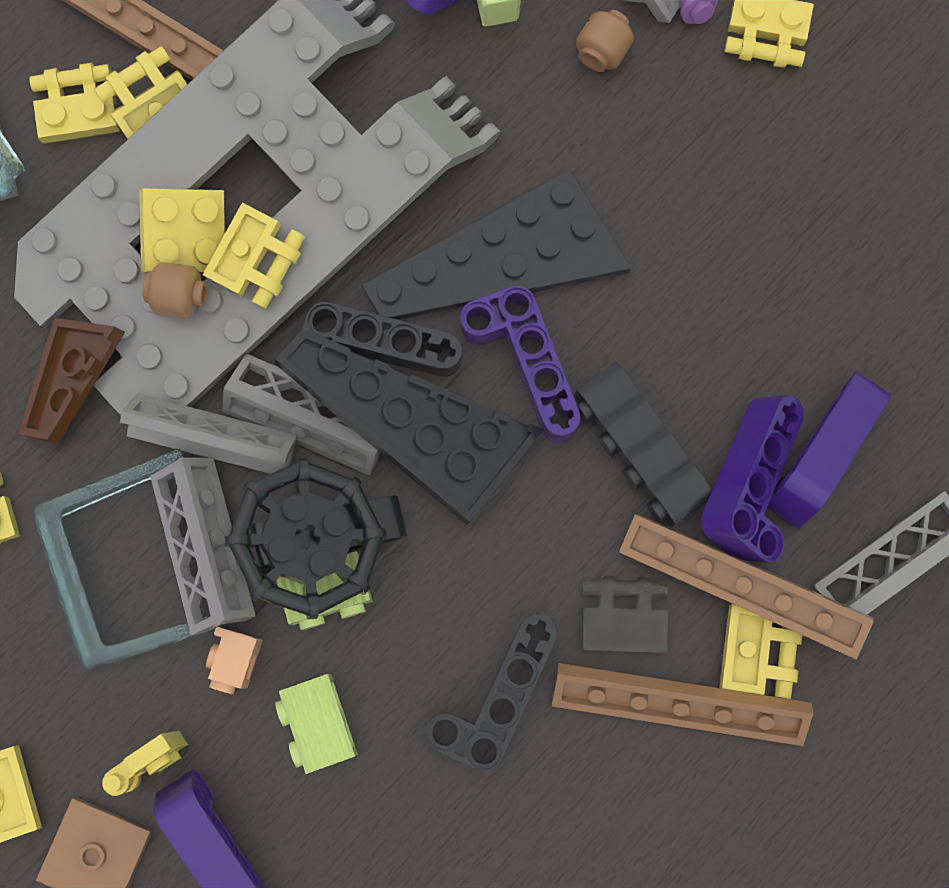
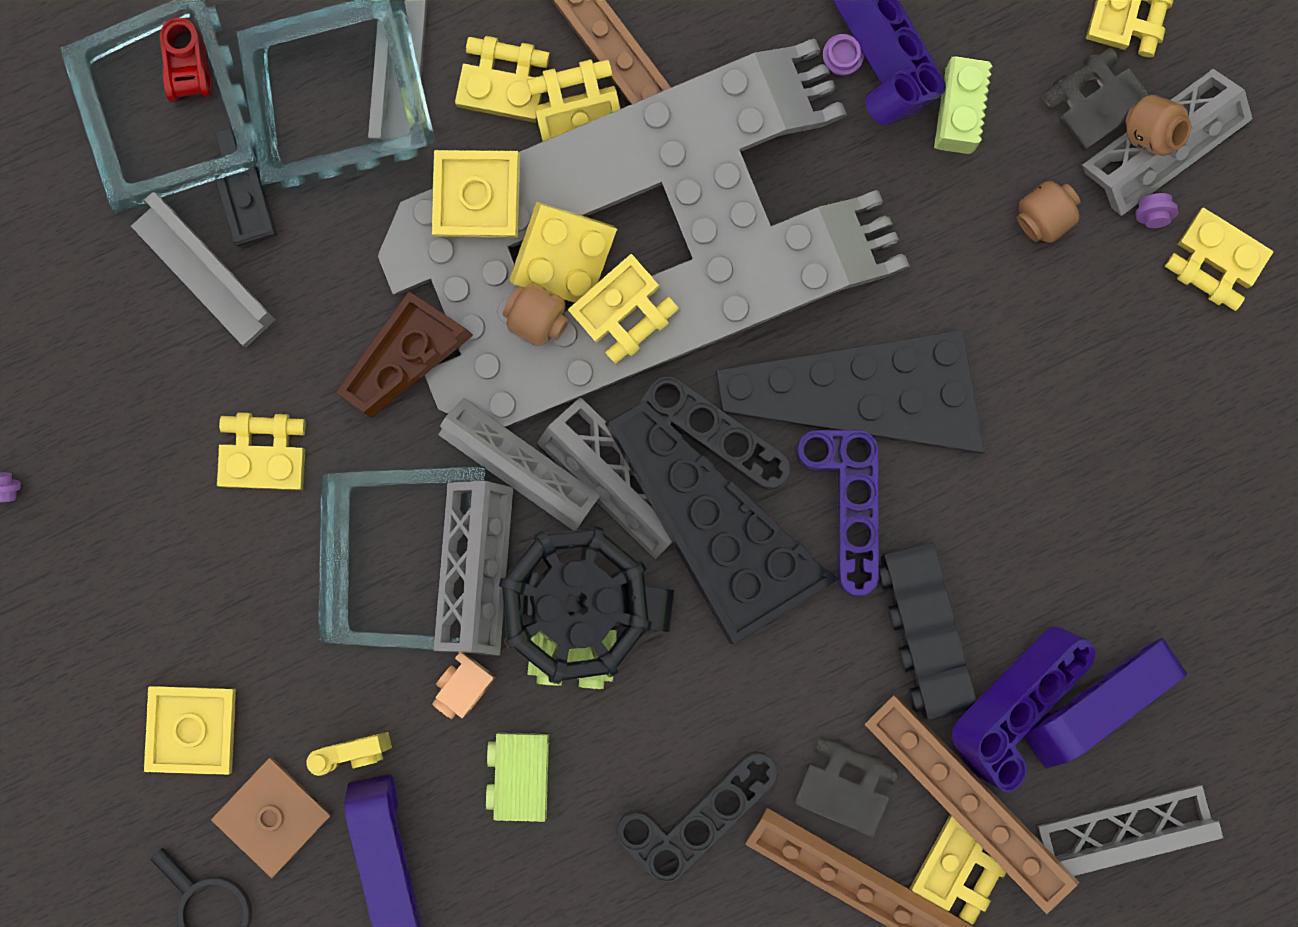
camera: 25 degrees right, 5 degrees up
(81, 203) = (476, 193): none -> light yellow plate

